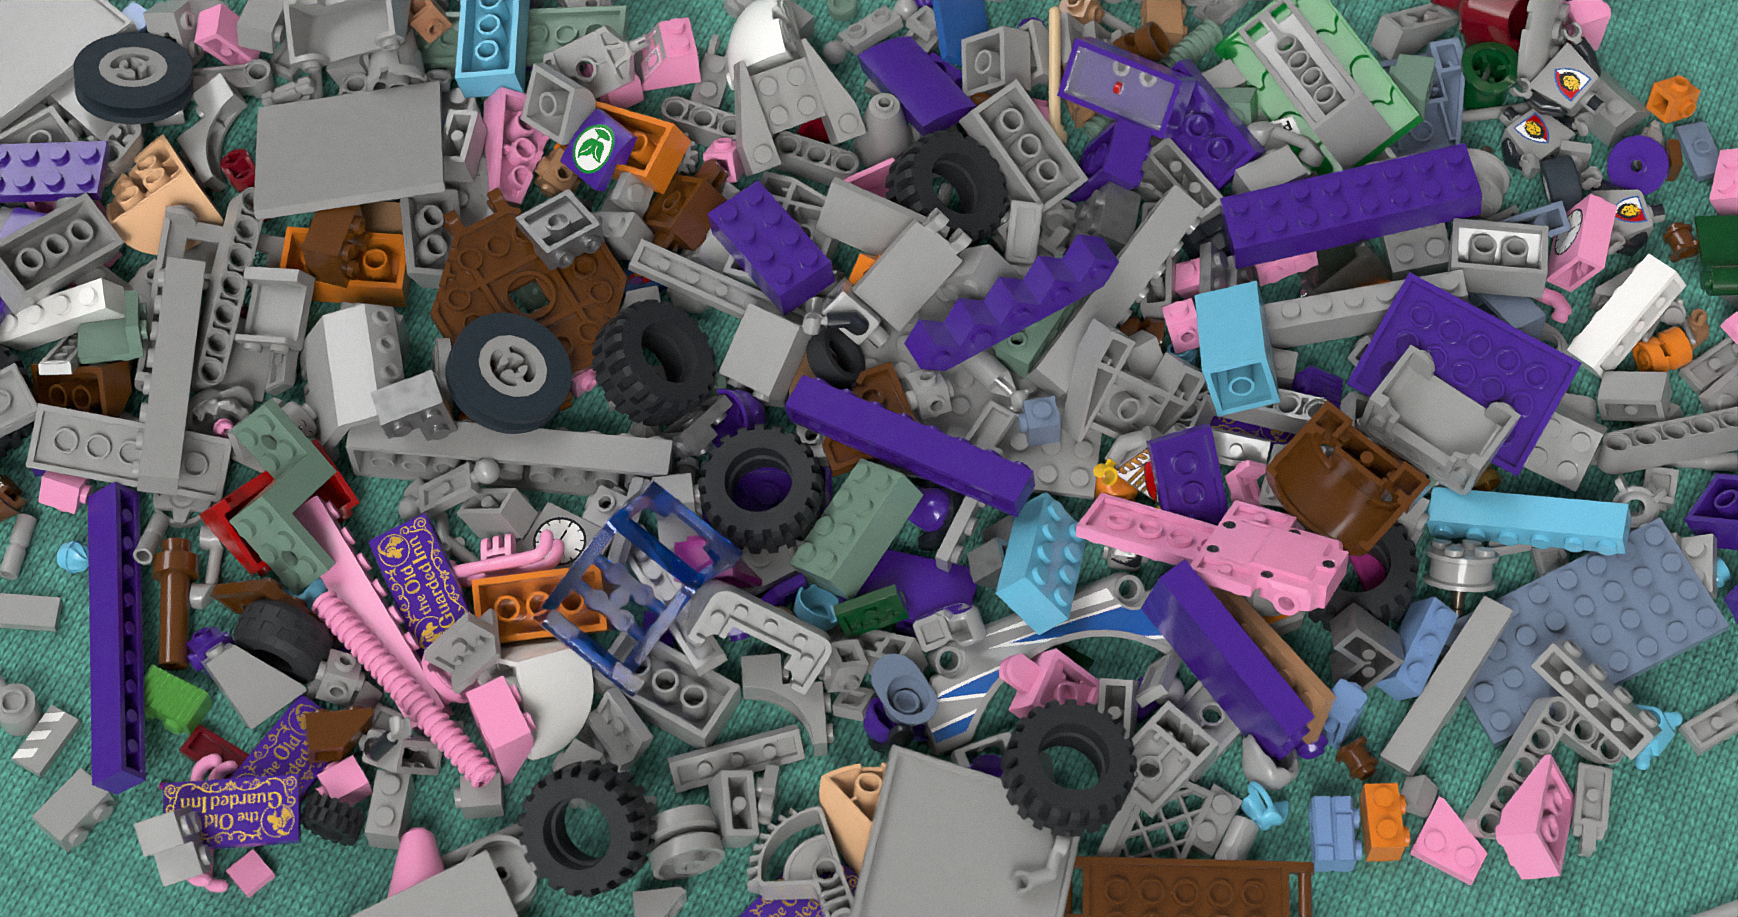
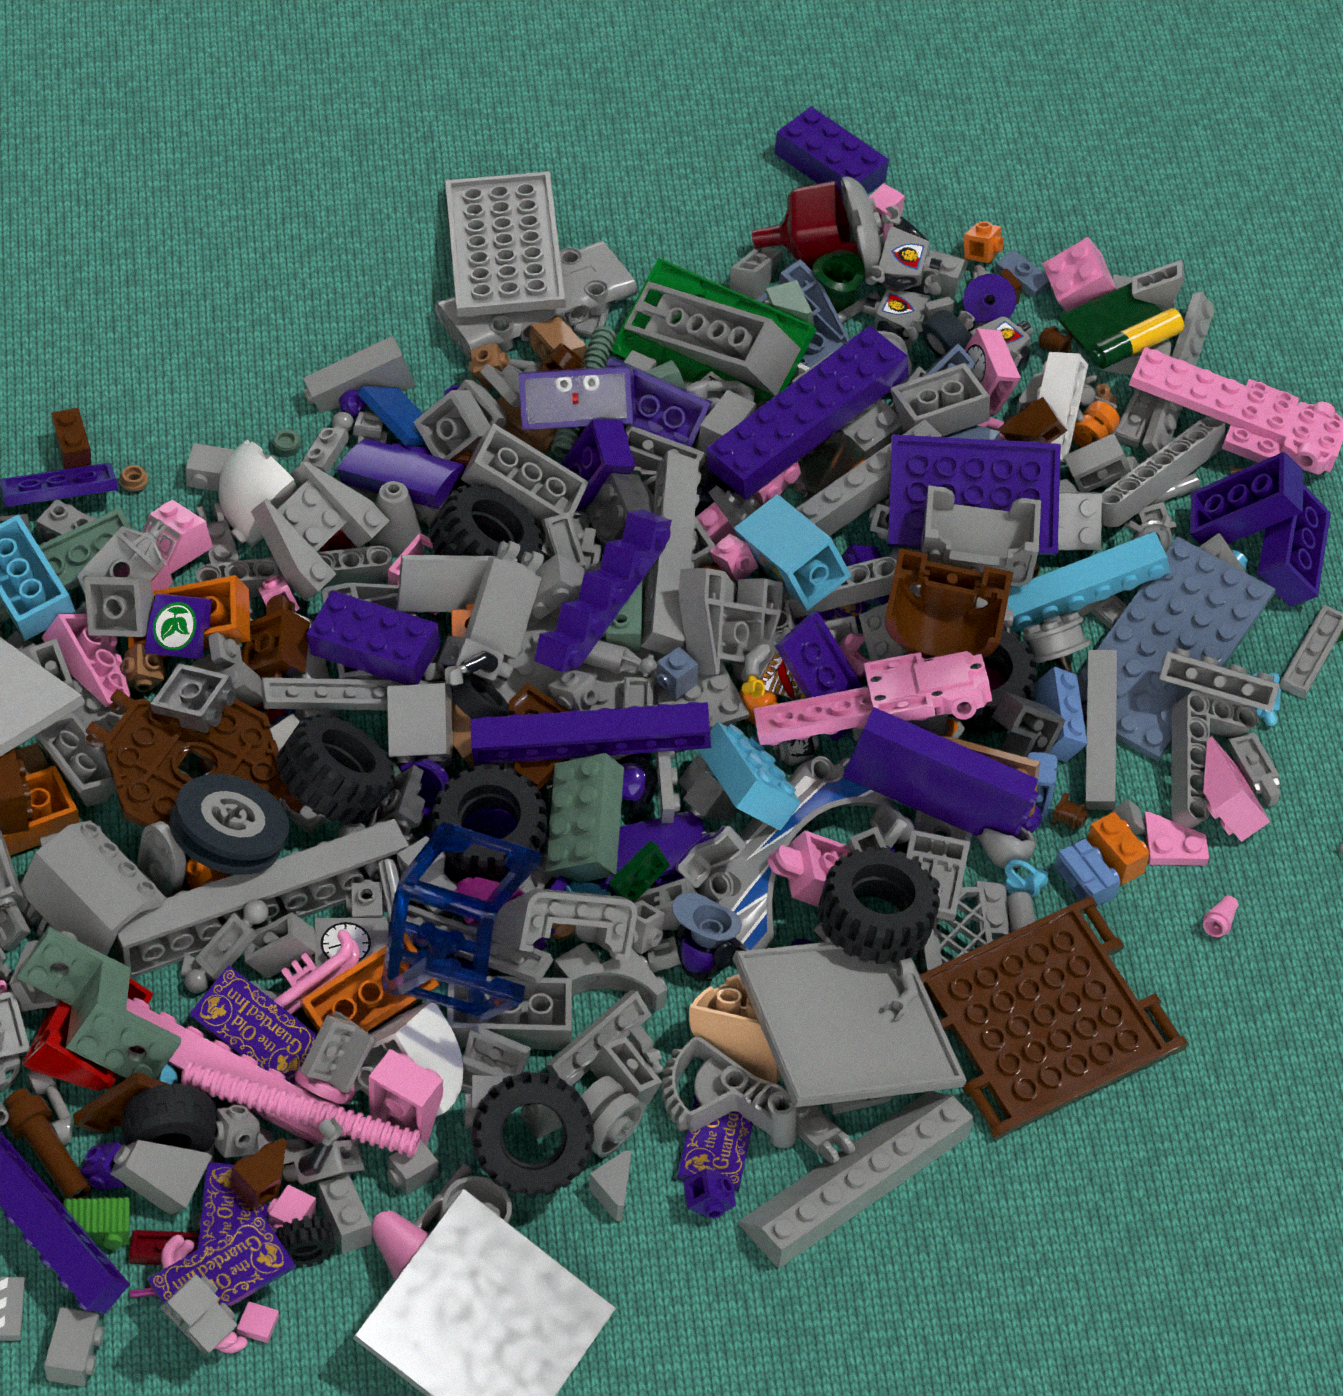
camera: 35 degrees left, 10 degrees down
(414, 405) = (174, 881): flat silver brick -> none
(960, 755) = (800, 928): light grey piece -> none
(1055, 74) = (501, 402): tan piece -> none
(1588, 325) = (1034, 424): none -> reddish brown slope

